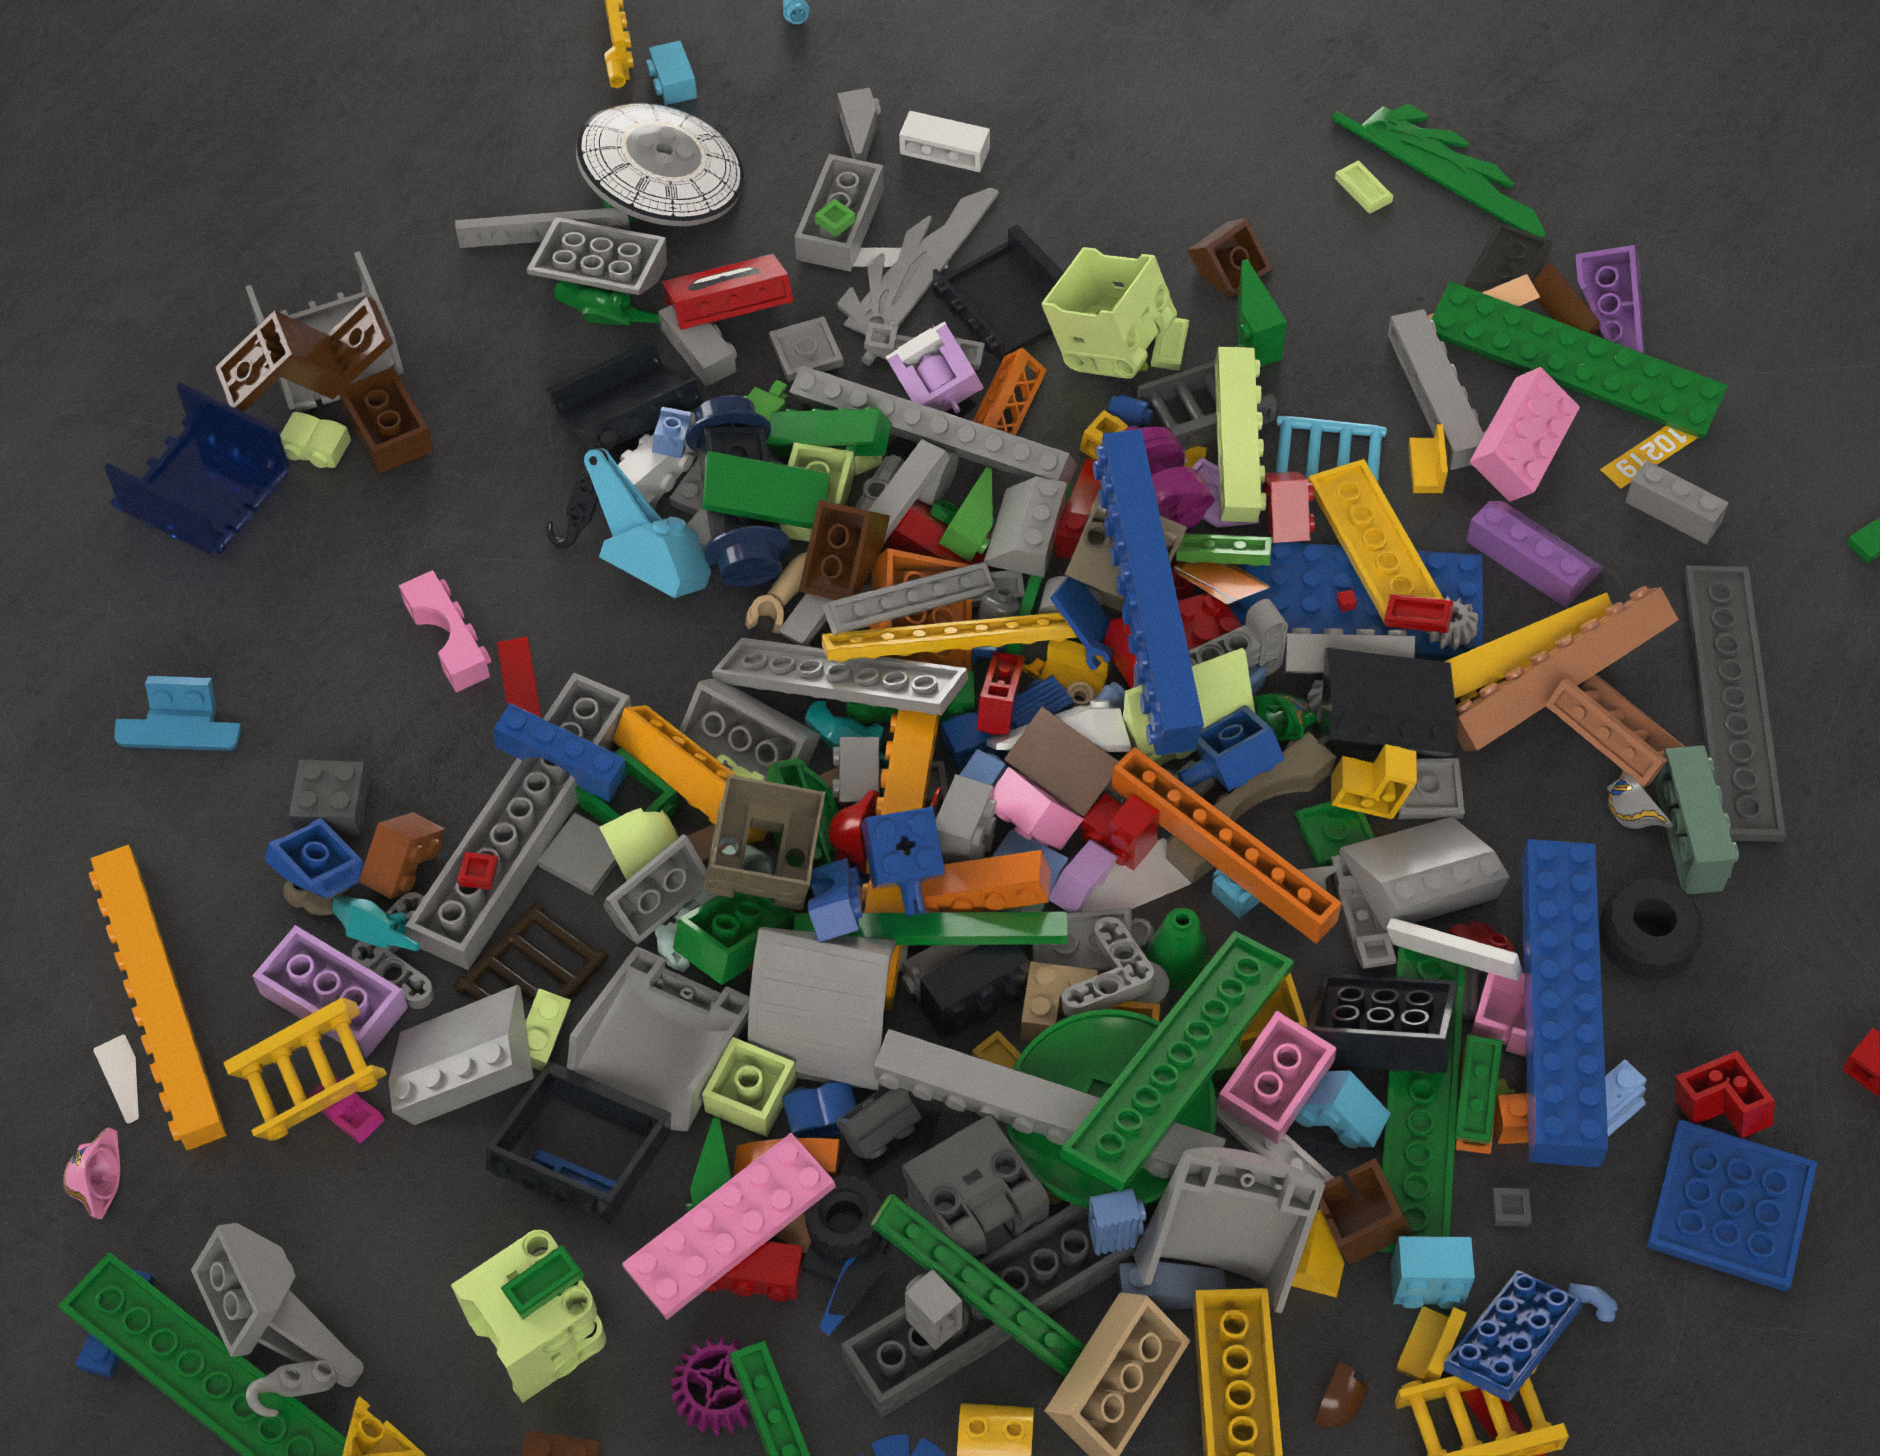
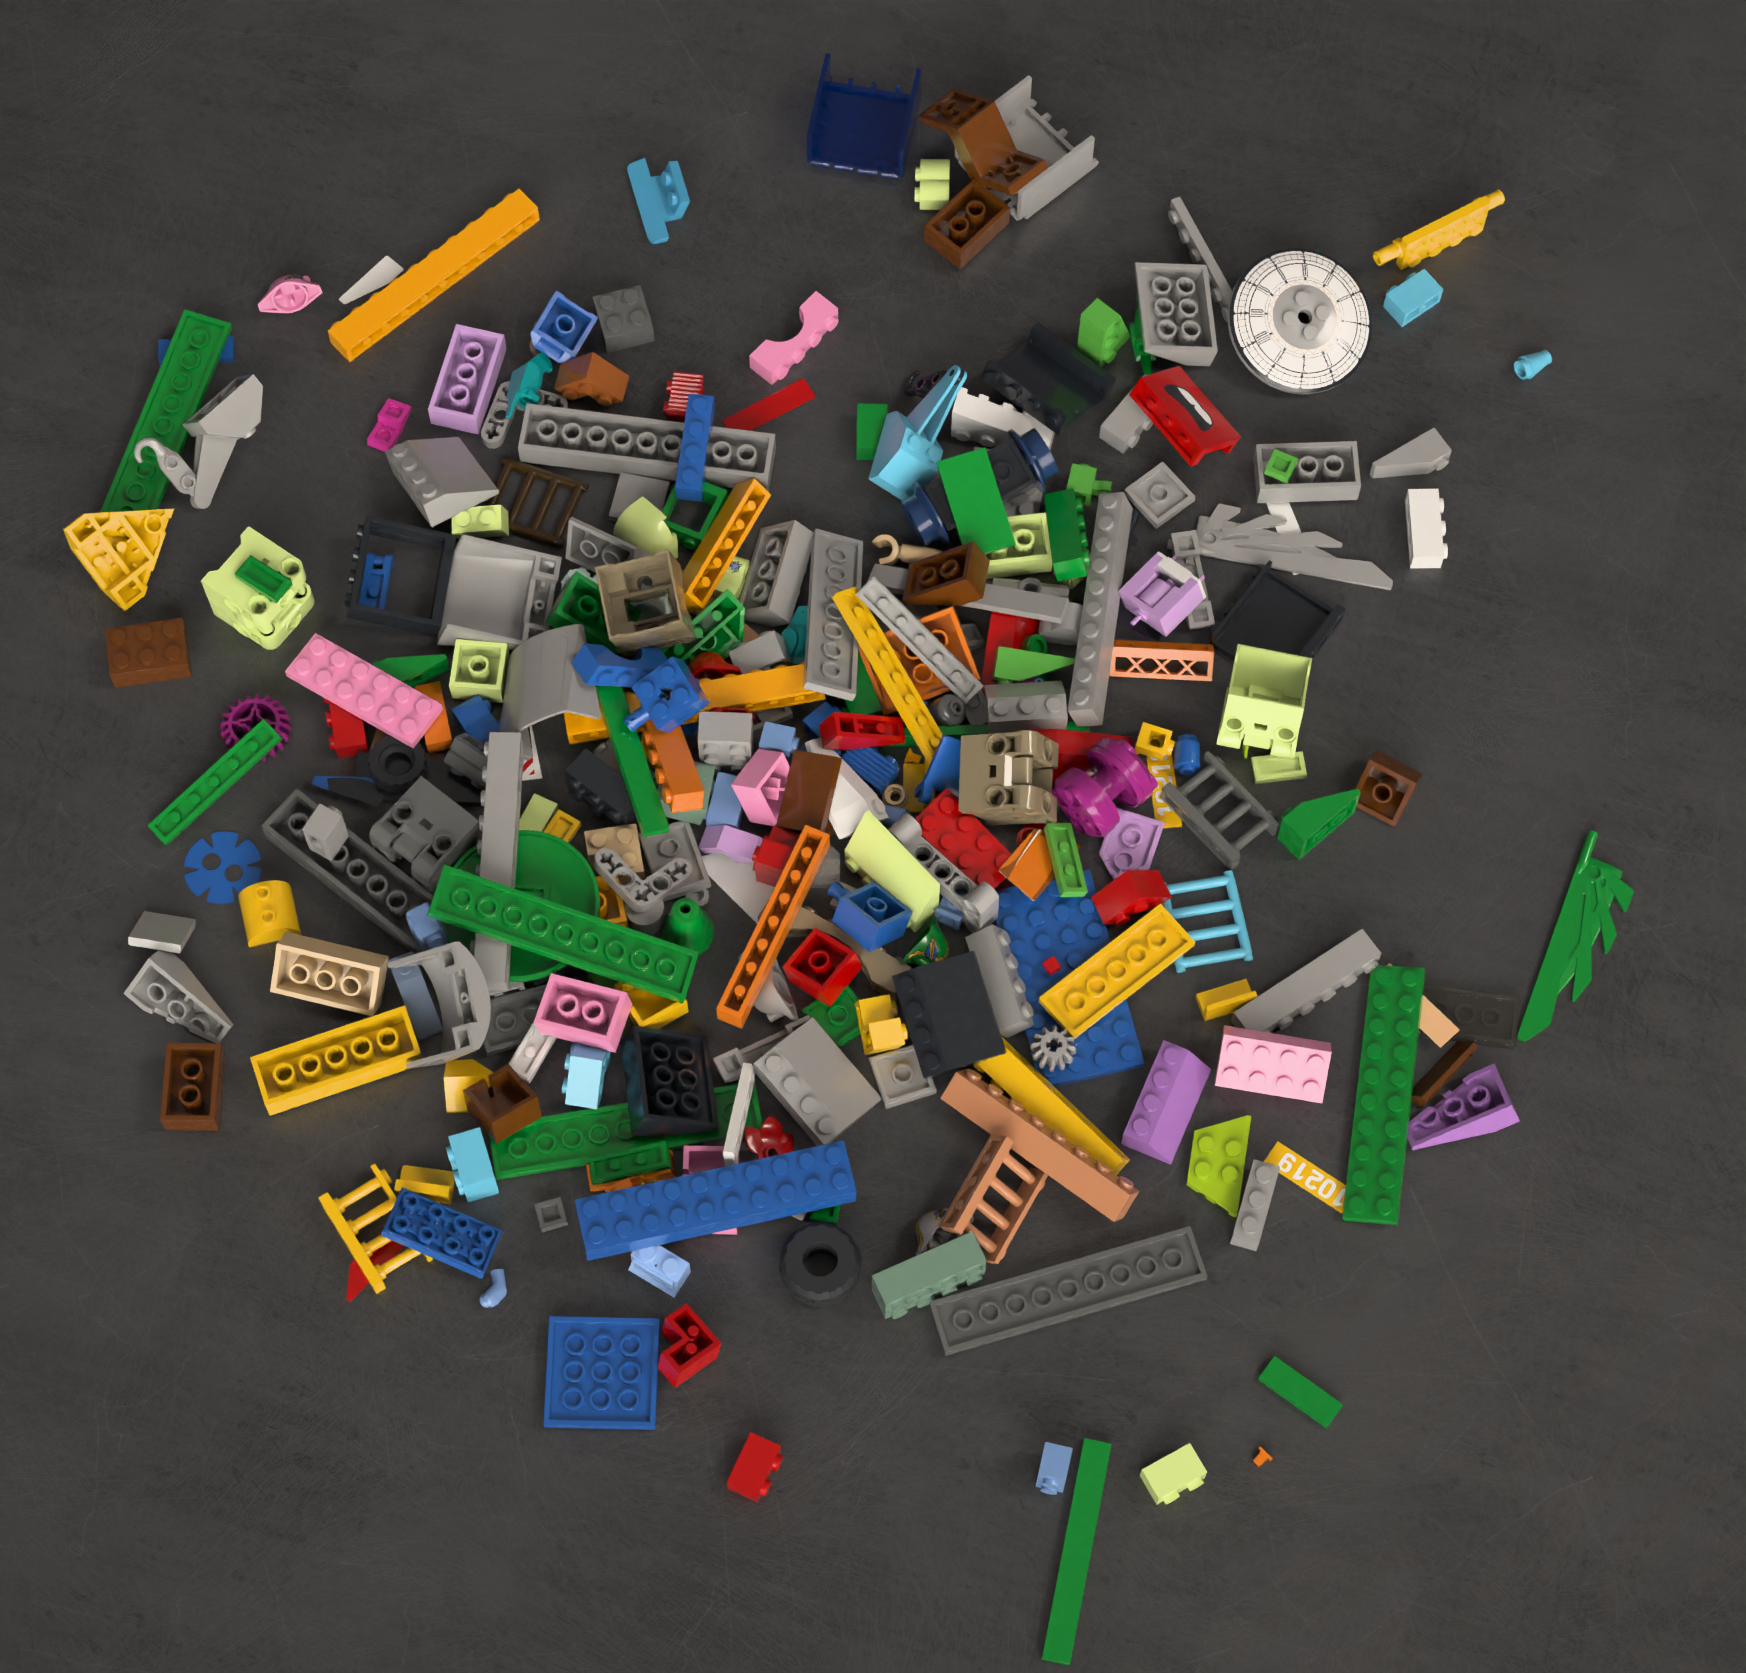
camera: 70 degrees right, 10 degrees up
(279, 1049) = (404, 364): yellow fence -> none
(471, 764) = (679, 390): none -> red brick
(478, 870) = (583, 432): red tile -> none
(592, 327) = (1101, 333): none -> bright green wedge
(604, 588) = (869, 429): none -> green brick
(671, 432) = (1003, 421): medium blue brick -> none
(977, 1285) = (351, 853): green tile -> none
(1148, 593) = (944, 790): blue brick -> none
(1238, 434) = (1183, 836): yellowish green brick -> none
(1281, 817) = (822, 967): none -> red brick
(1342, 1398) = (367, 1132): reddish brown brick -> none
(1364, 187) = (1518, 877): yellowish green tile -> none
(1419, 613) = (1044, 1017): red tile -> none
(1614, 524) = (1219, 1162): none -> lime wing

